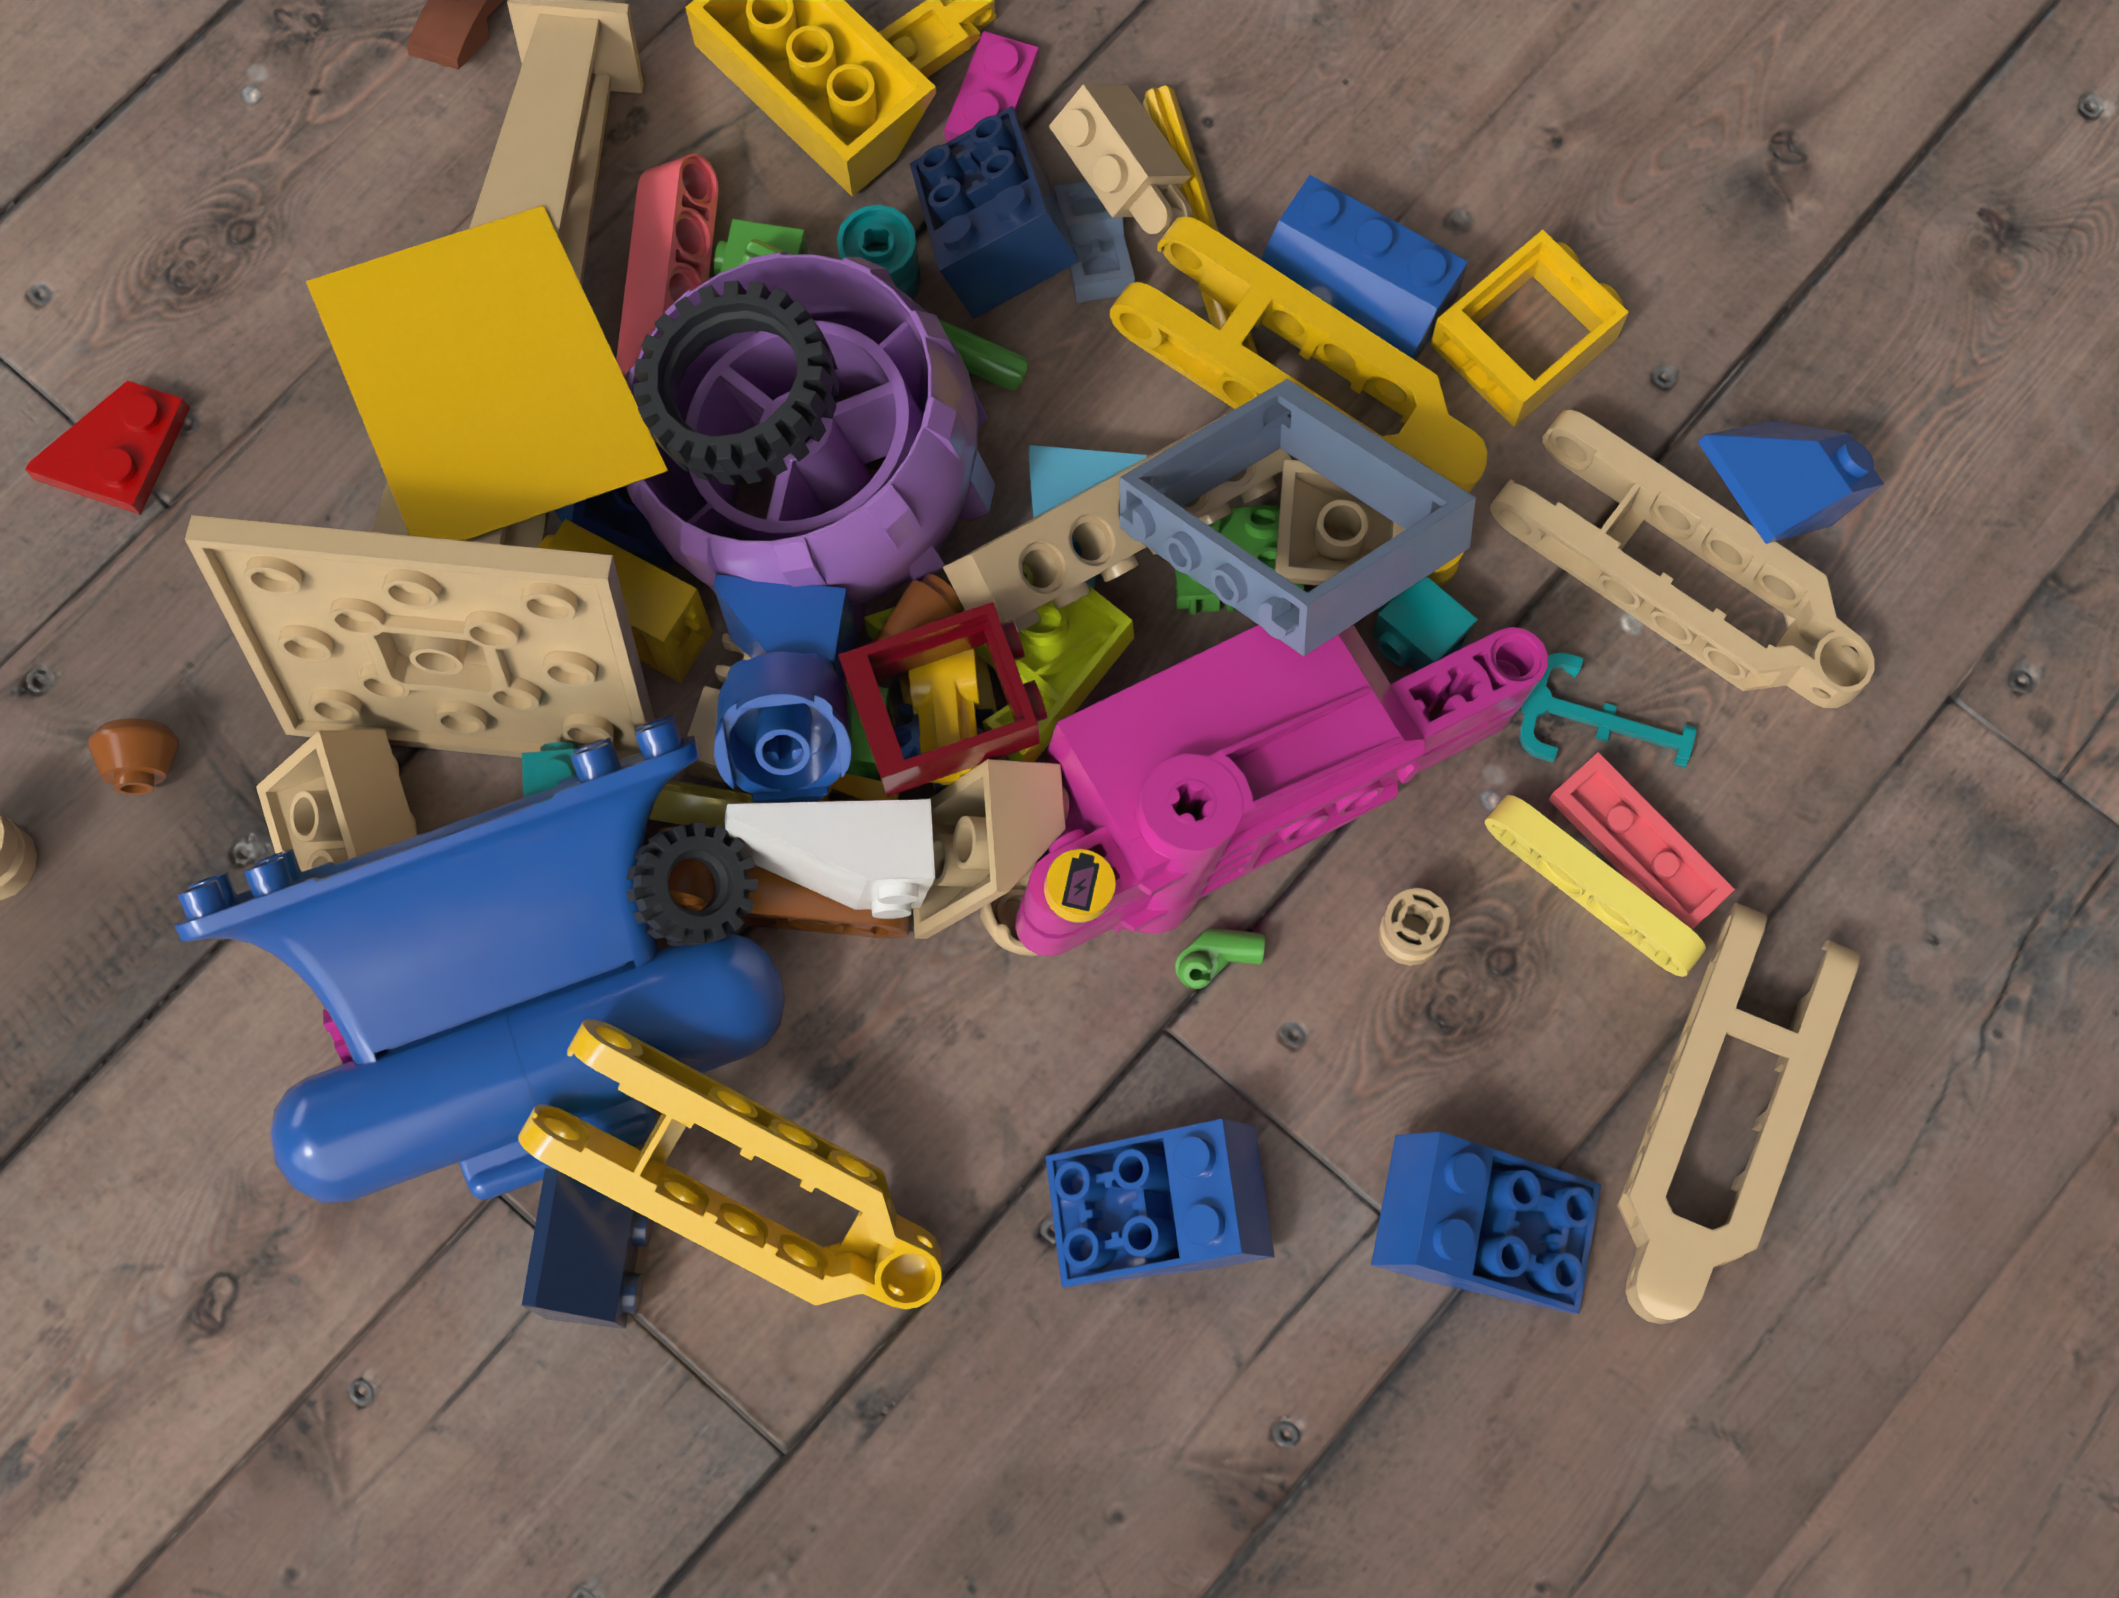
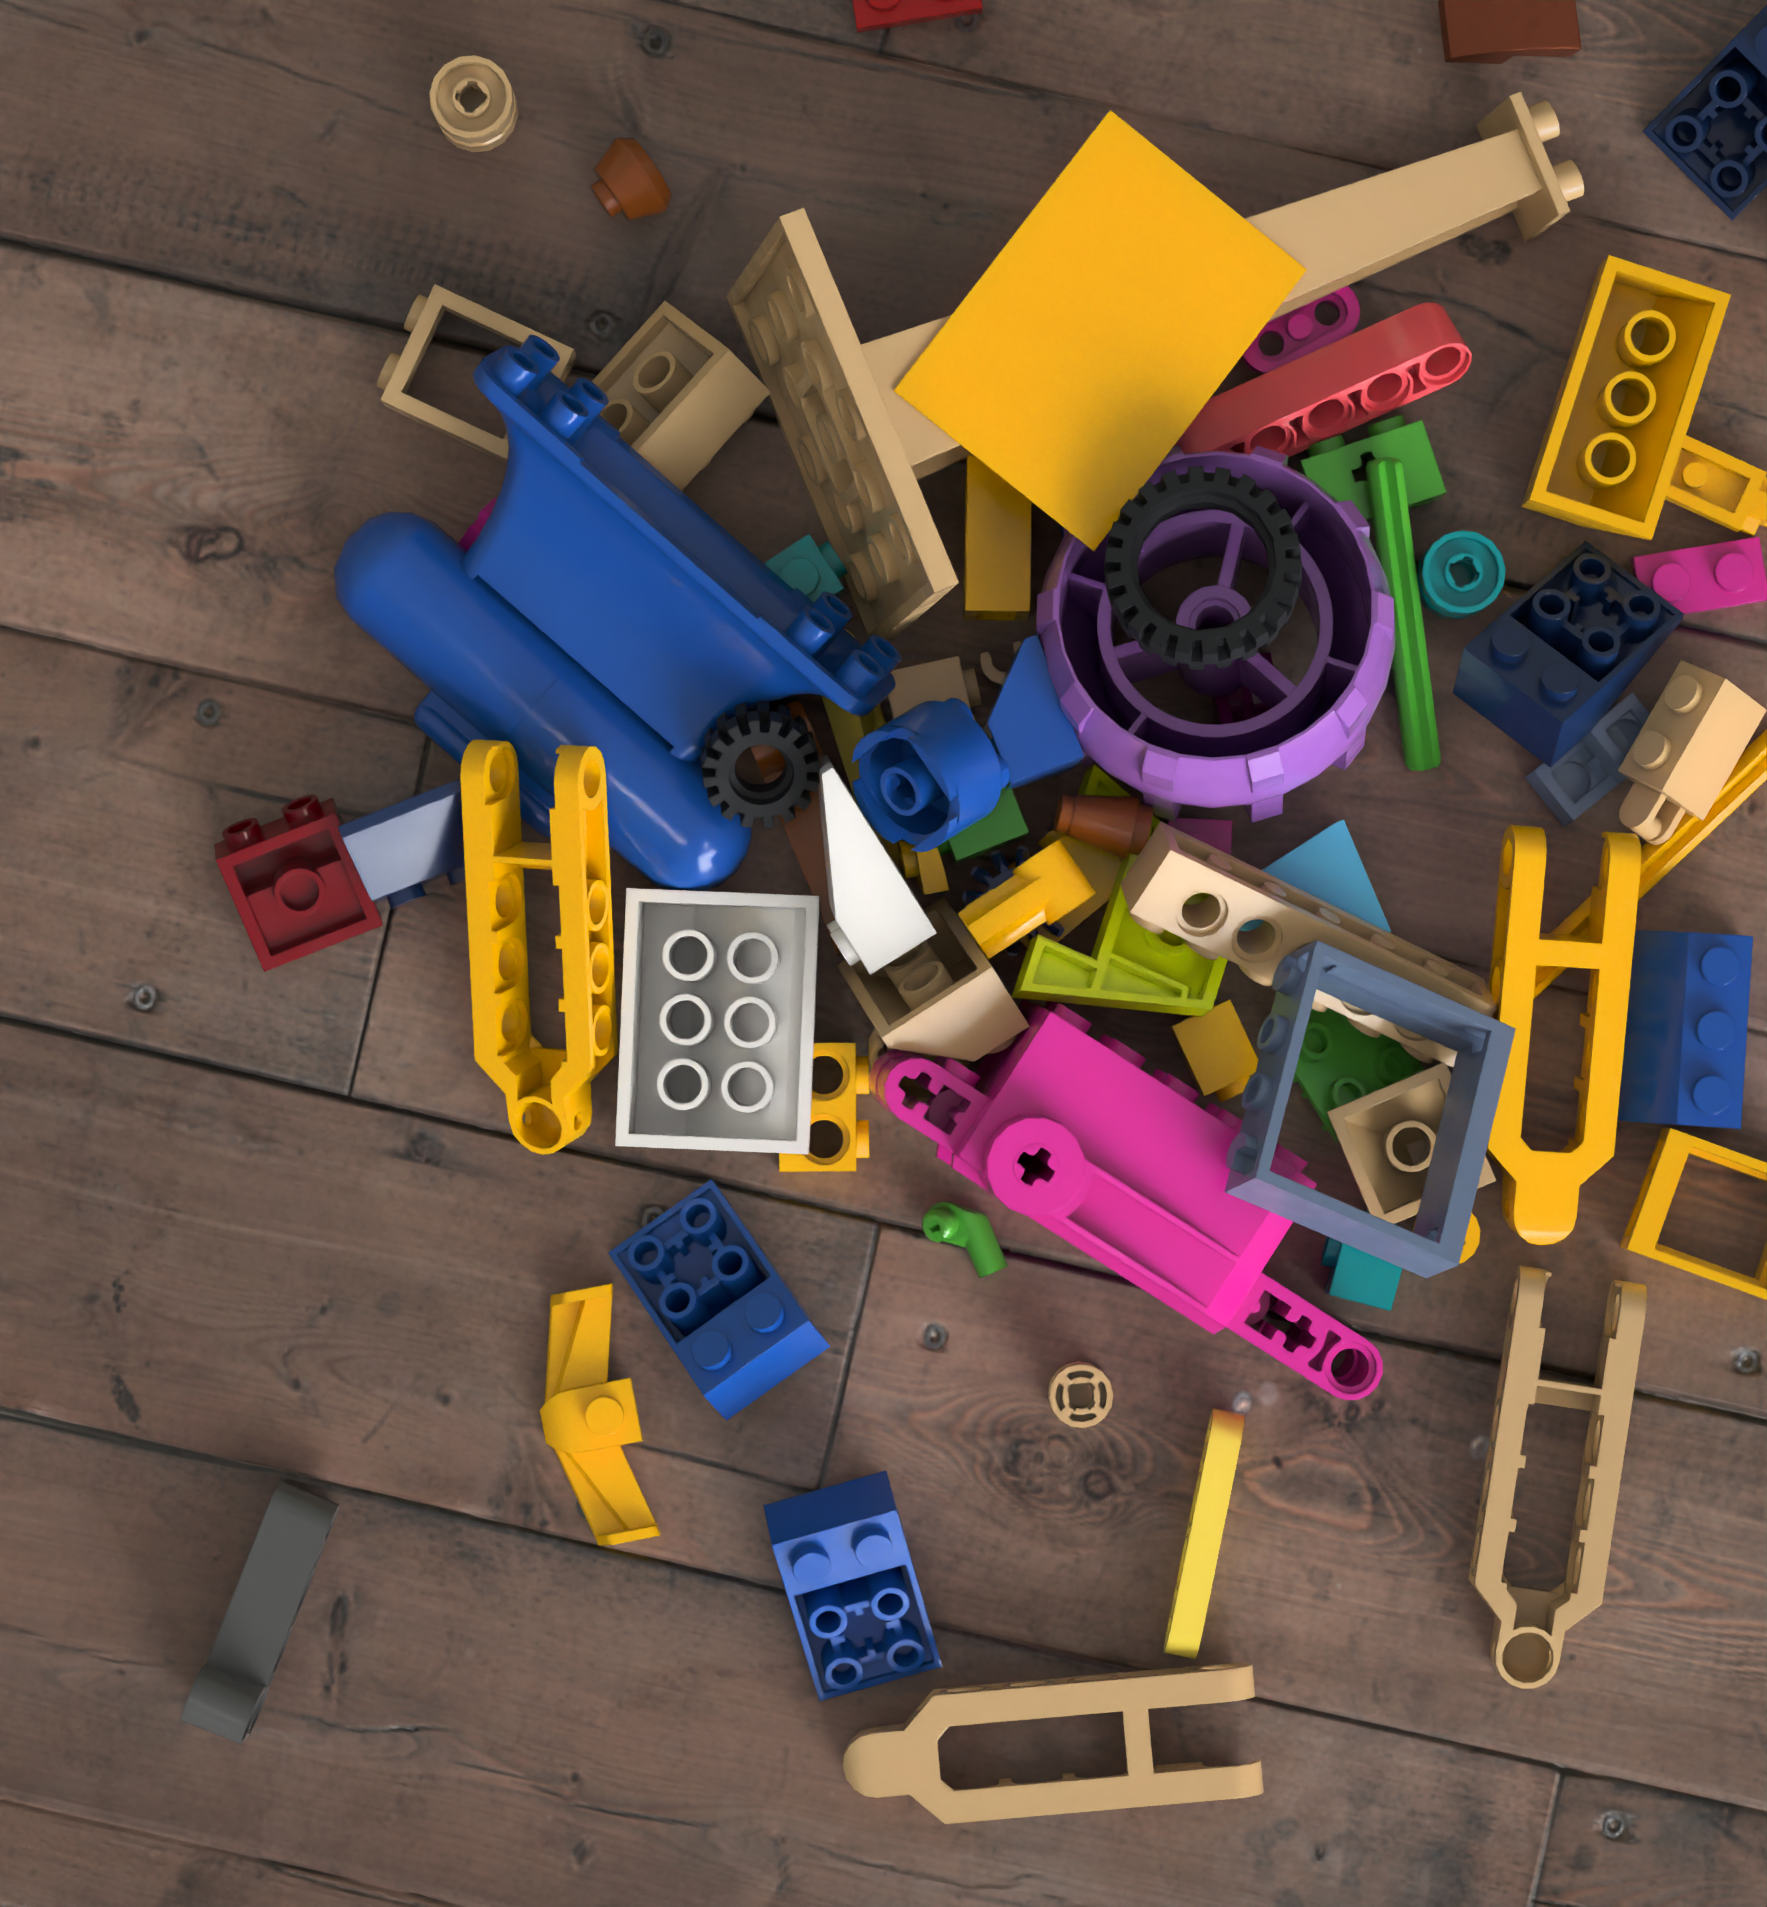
camera: 60 degrees right, 15 degrees up
(223, 1034) = (422, 324): none -> tan window
(559, 1388) = (295, 882): none -> dark red plate
(607, 287) = (1303, 333): none -> dark pink plate
(904, 1061) = (717, 1021): none -> white slope
(926, 645) = (971, 855): dark red window -> none
(1022, 1034) = (840, 1109): none -> yellow brick
(1079, 885) = (919, 1107): yellow tile -> none
(1164, 641) = (1216, 1051): none -> yellow brick
(1206, 1382) = (592, 1417): none -> yellow plate
(1542, 702) = (1370, 1468): teal piece -> none
(1640, 842) = (1265, 1556): coral plate -> none
(1792, 475) = (1689, 1521): blue slope -> none

